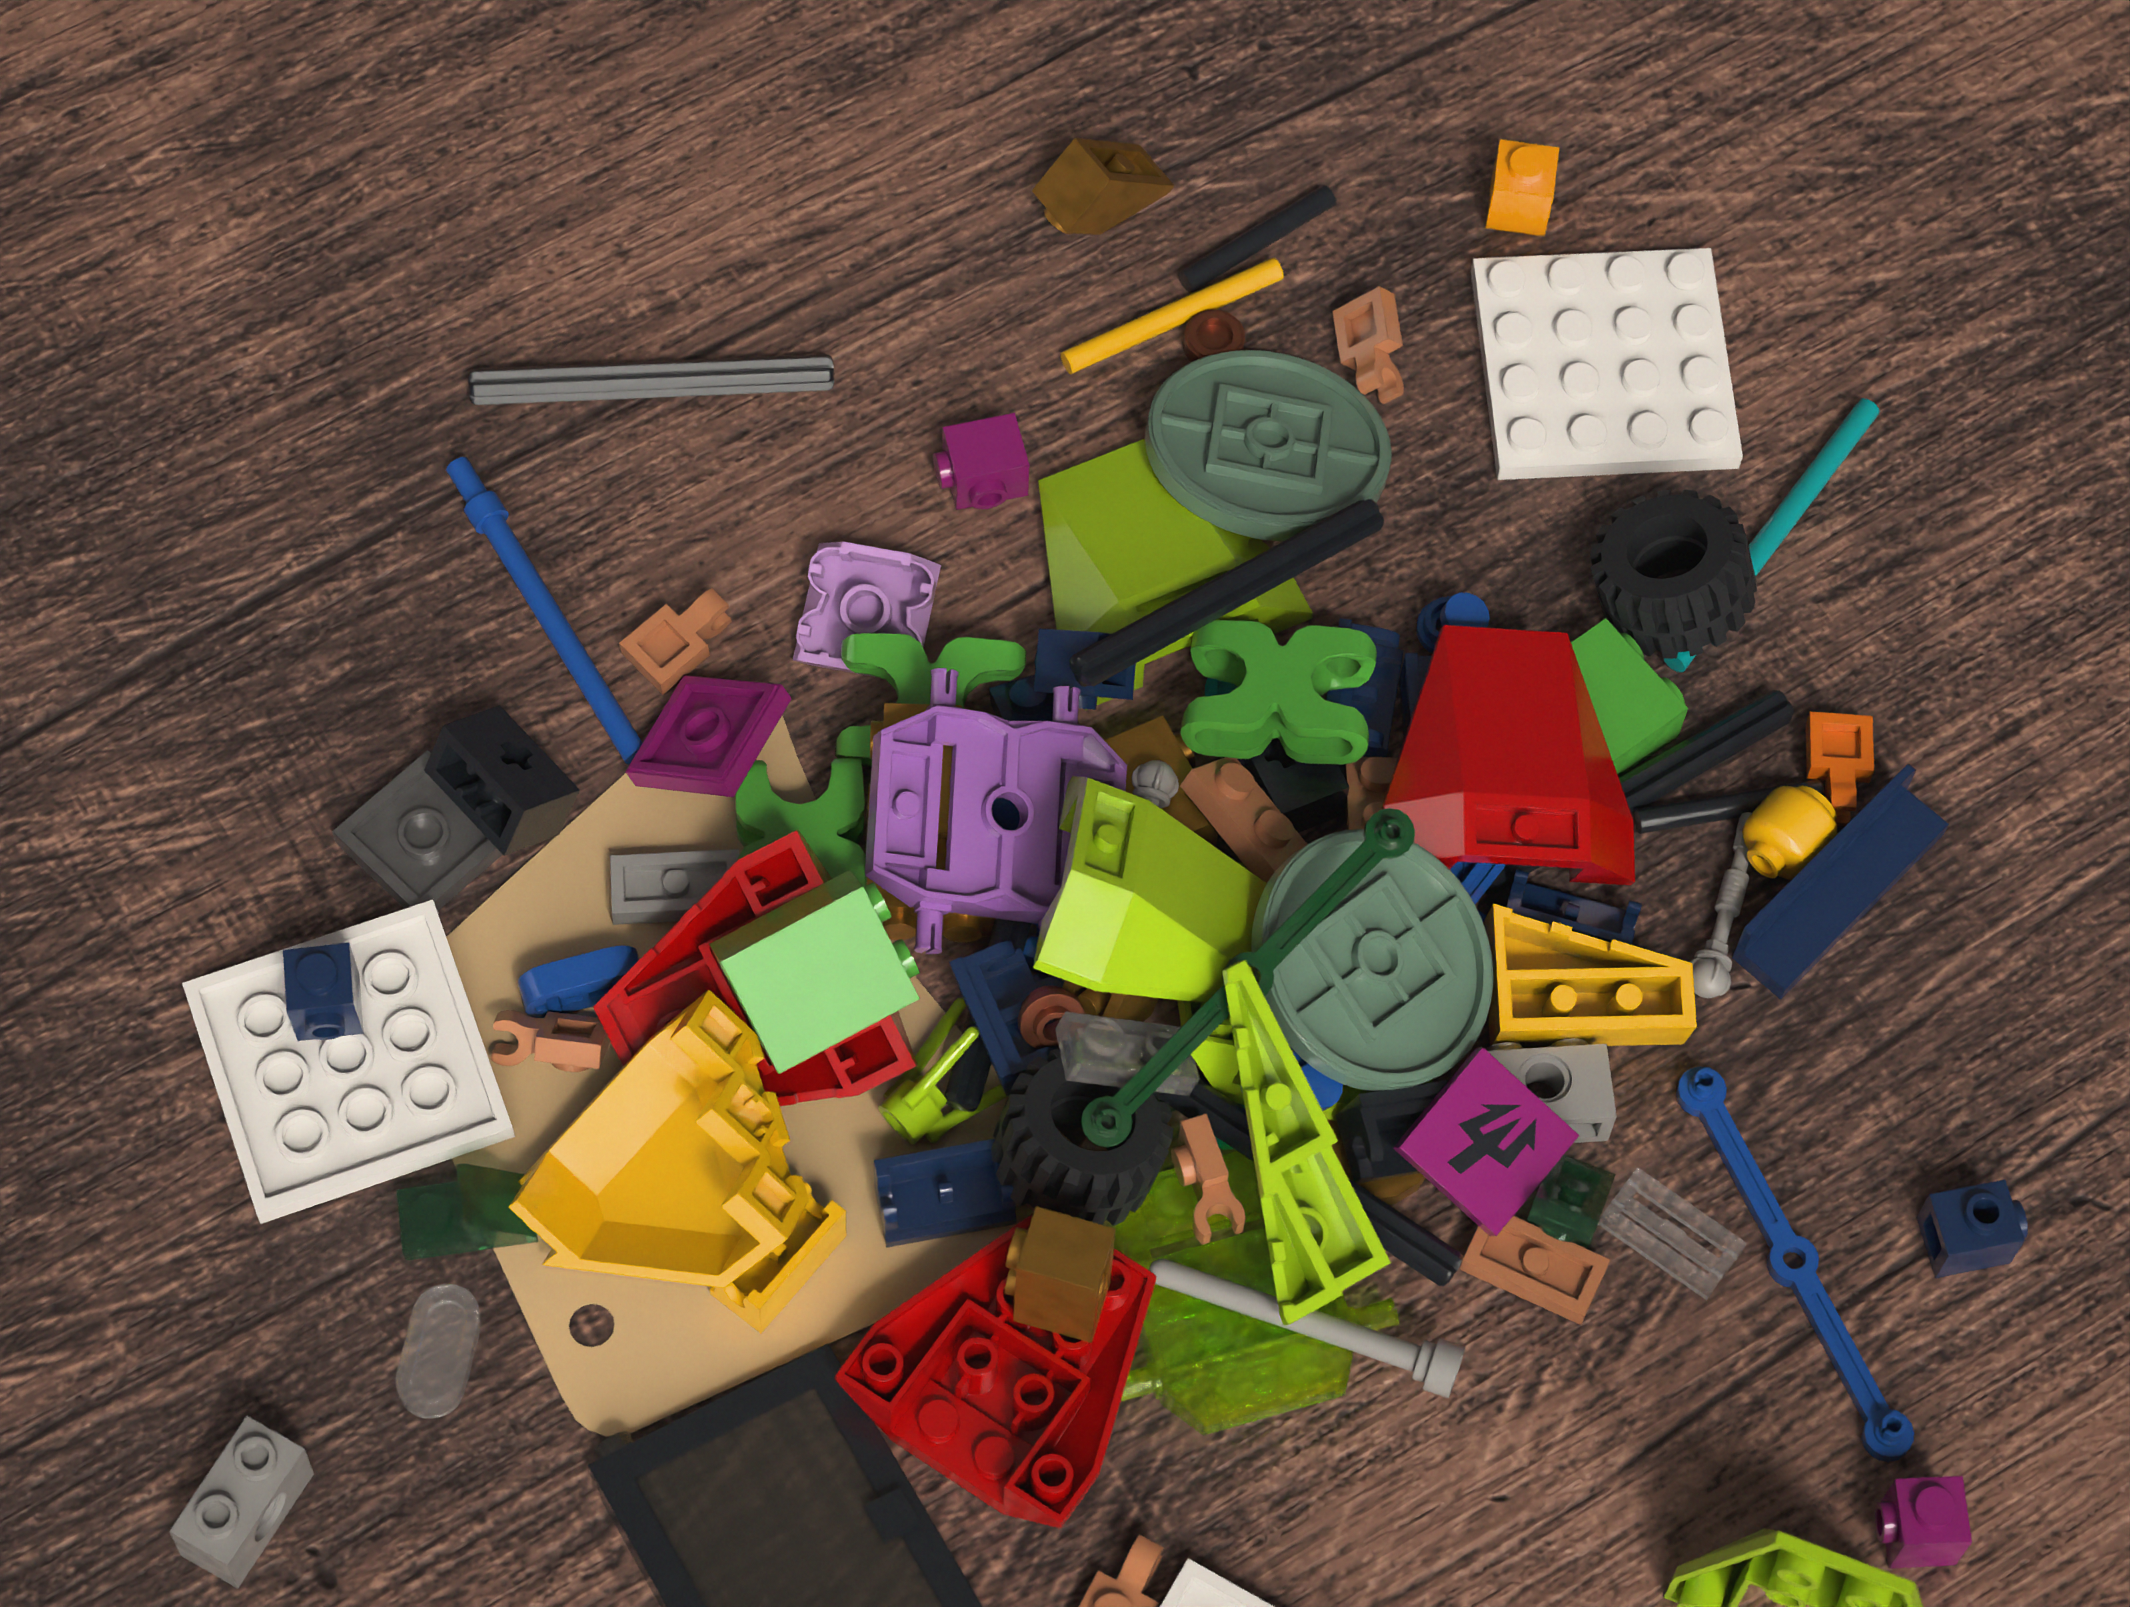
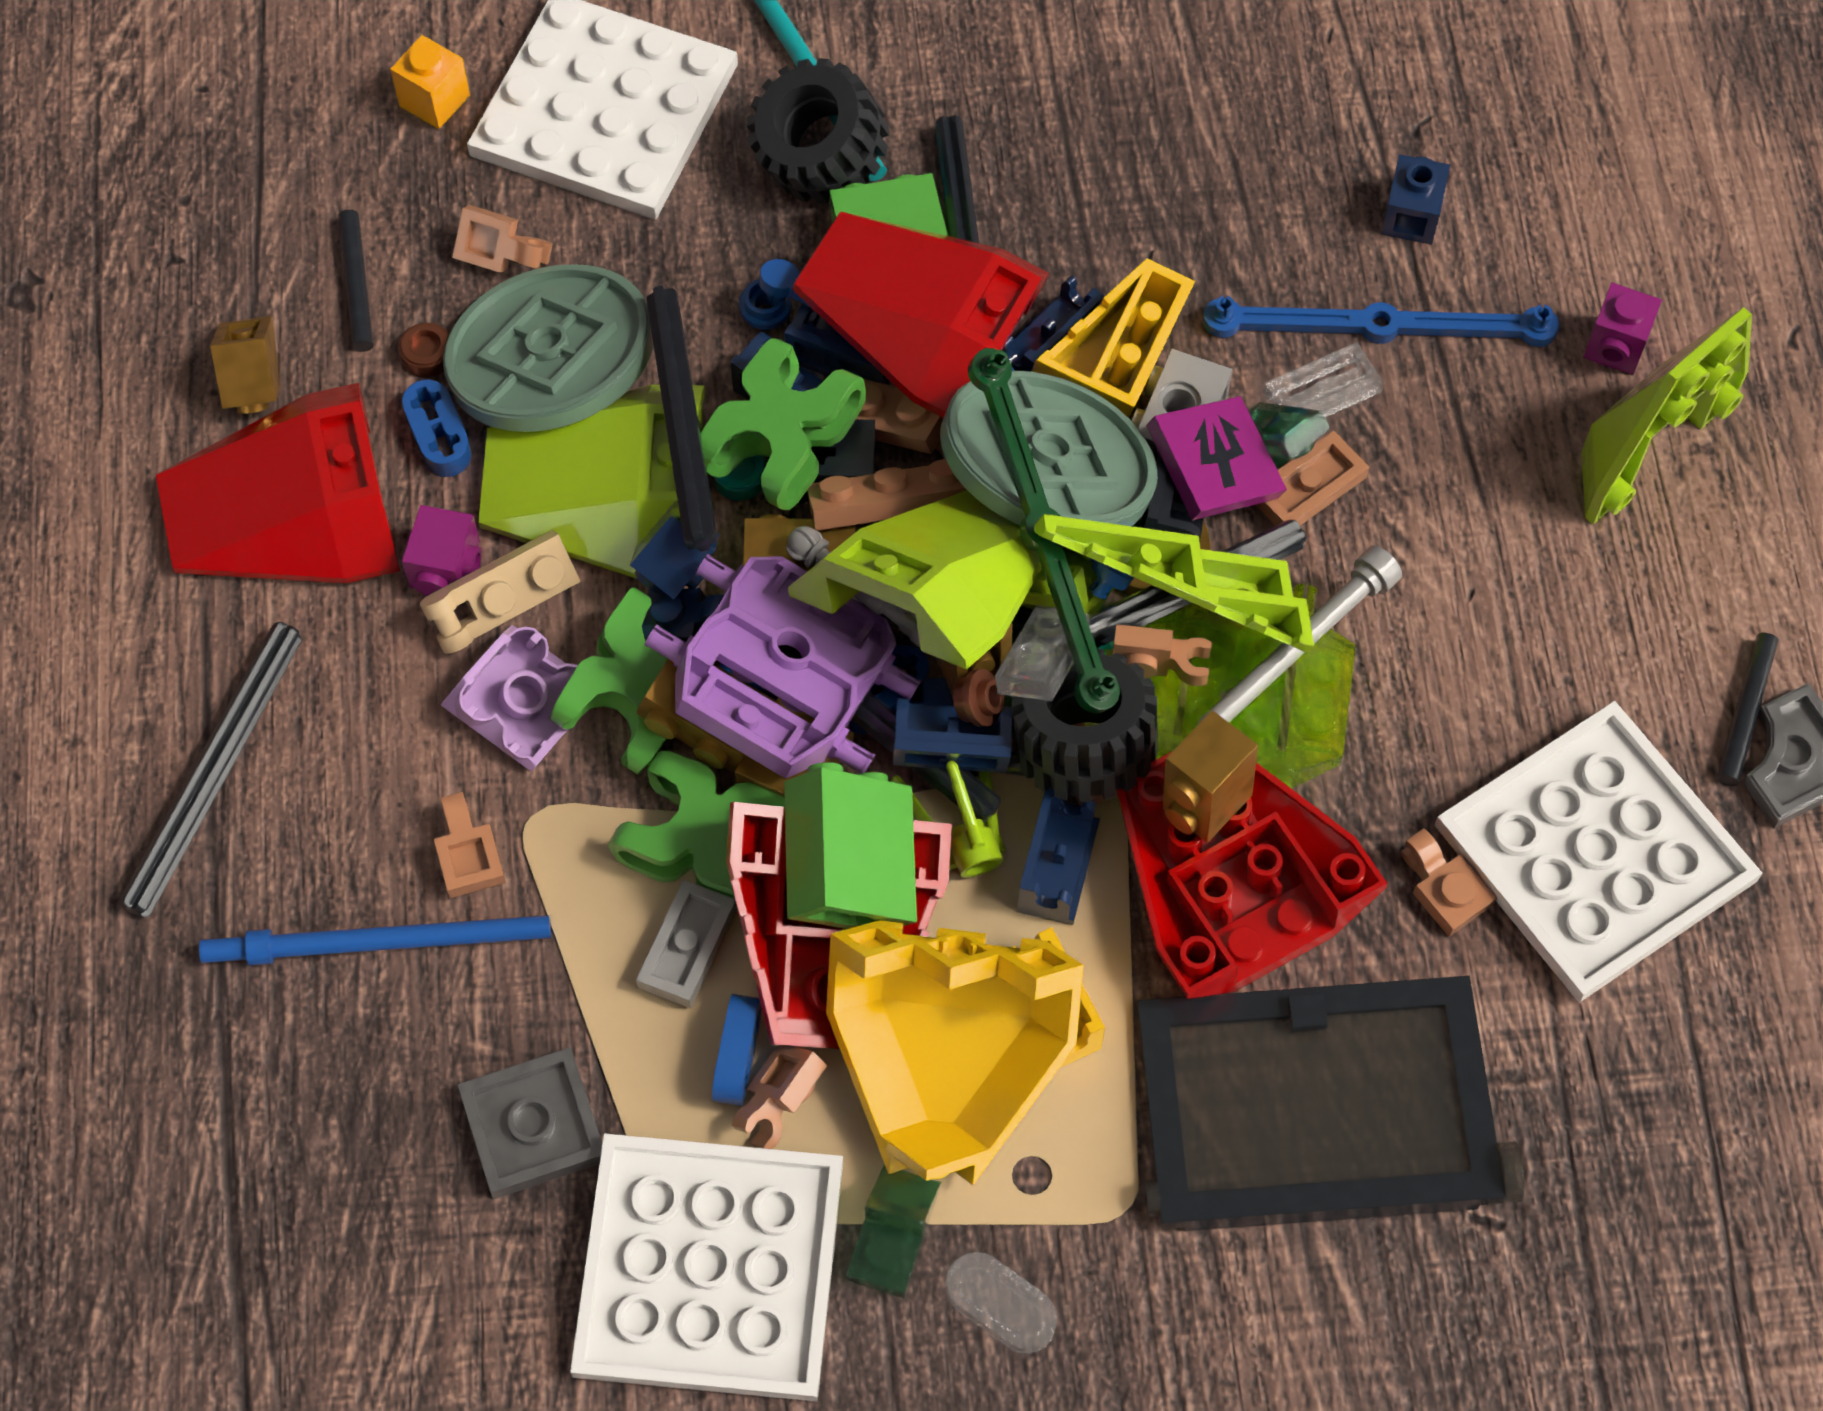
camera: 60 degrees left, 0 degrees up
(323, 992) = (656, 1250): dark blue brick -> none
(501, 780) = (525, 1032): black brick -> none
(708, 735) = (573, 856): magenta tile -> none
(970, 535) = (500, 591): none -> tan plate
(971, 293) = (283, 498): none -> red wedge
(1119, 384) = (446, 423): none -> blue beam
(1171, 315) = (386, 369): yellow bar -> none
(1707, 809) = (1011, 188): black bar -> none
(1712, 964) = (1082, 227): light grey piece -> none
(1788, 830) = (1058, 161): yellow head -> none
(1838, 886) = (1111, 156): dark blue panel -> none
(1841, 754) = (1012, 103): orange plate -> none

